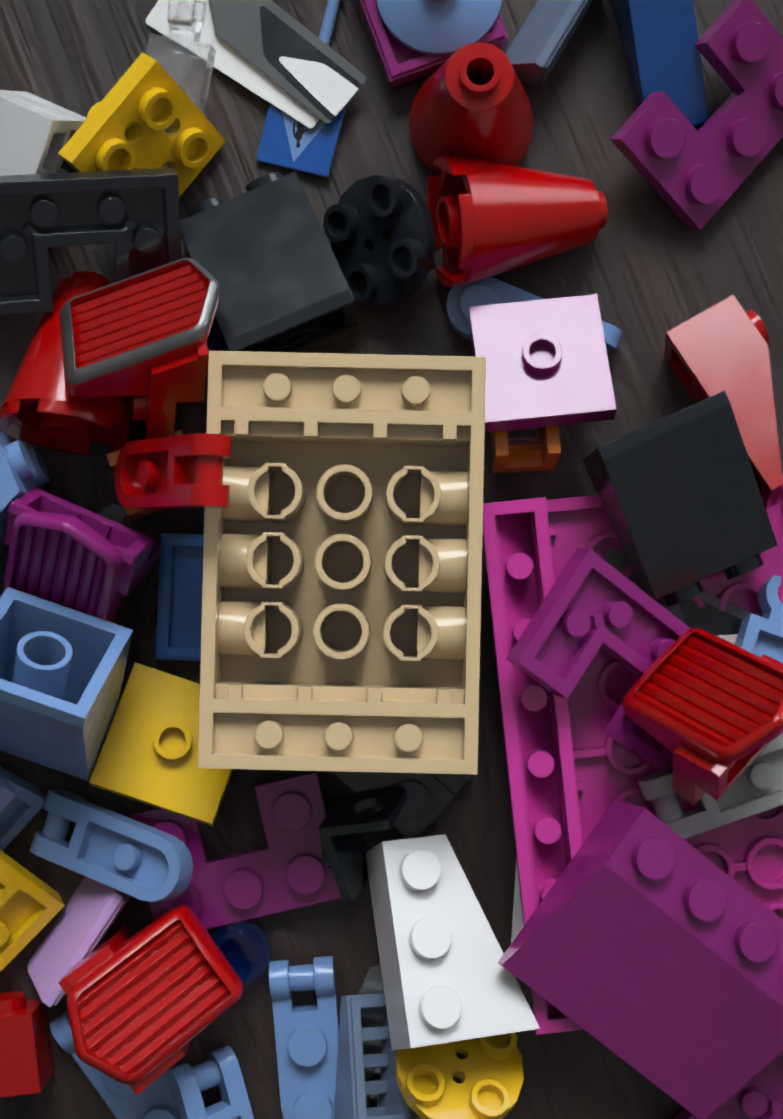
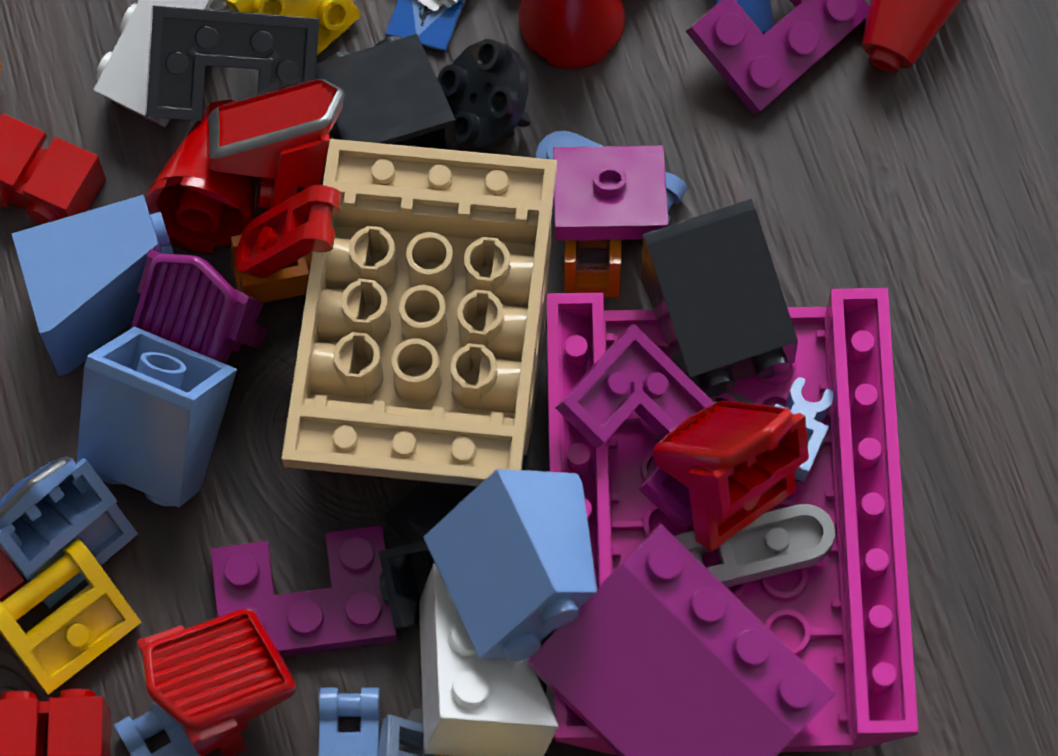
camera: 10 degrees right, 20 degrees down
(74, 936) = (126, 675): lavender slope -> none
(113, 848) = (192, 565): medium blue plate -> none
(155, 748) = (251, 493): yellow plate -> none
(180, 597) = (276, 374): blue tile -> none
(245, 948) = (306, 675): clear blue plate -> none
(487, 867) = (516, 559): none -> medium blue slope
(507, 216) = (593, 83): red cone -> none
(731, 353) = (782, 215): slope -> none

